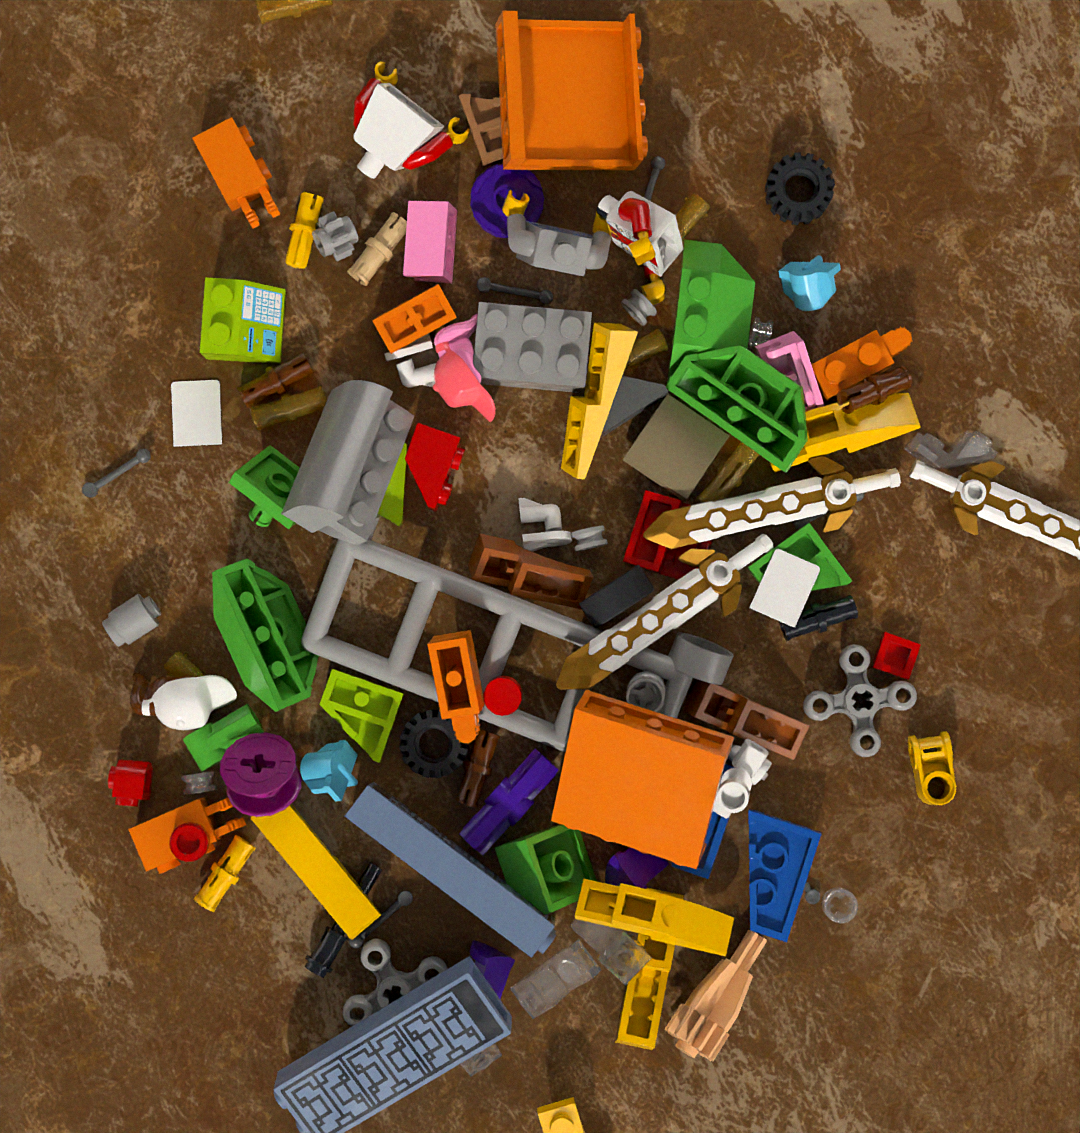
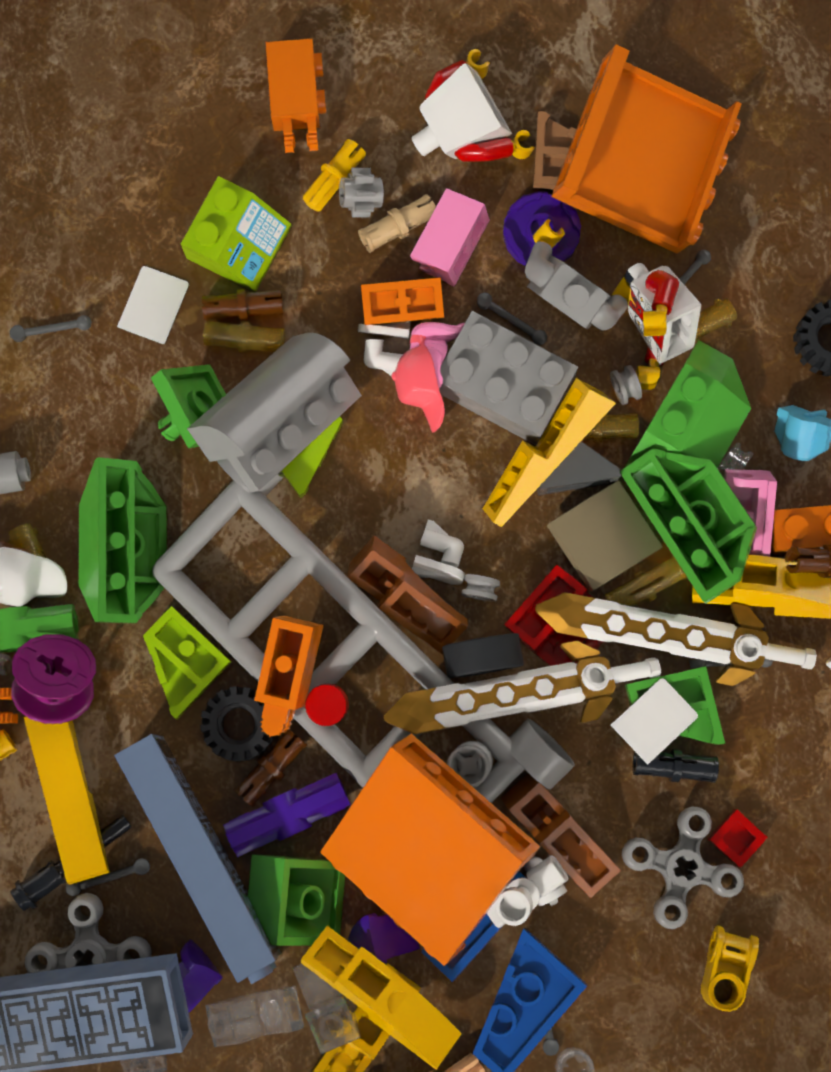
camera: 20 degrees right, 5 degrees down
(330, 769) = (124, 704): medium azure piece -> none
(431, 460) = (358, 445): red slope -> none

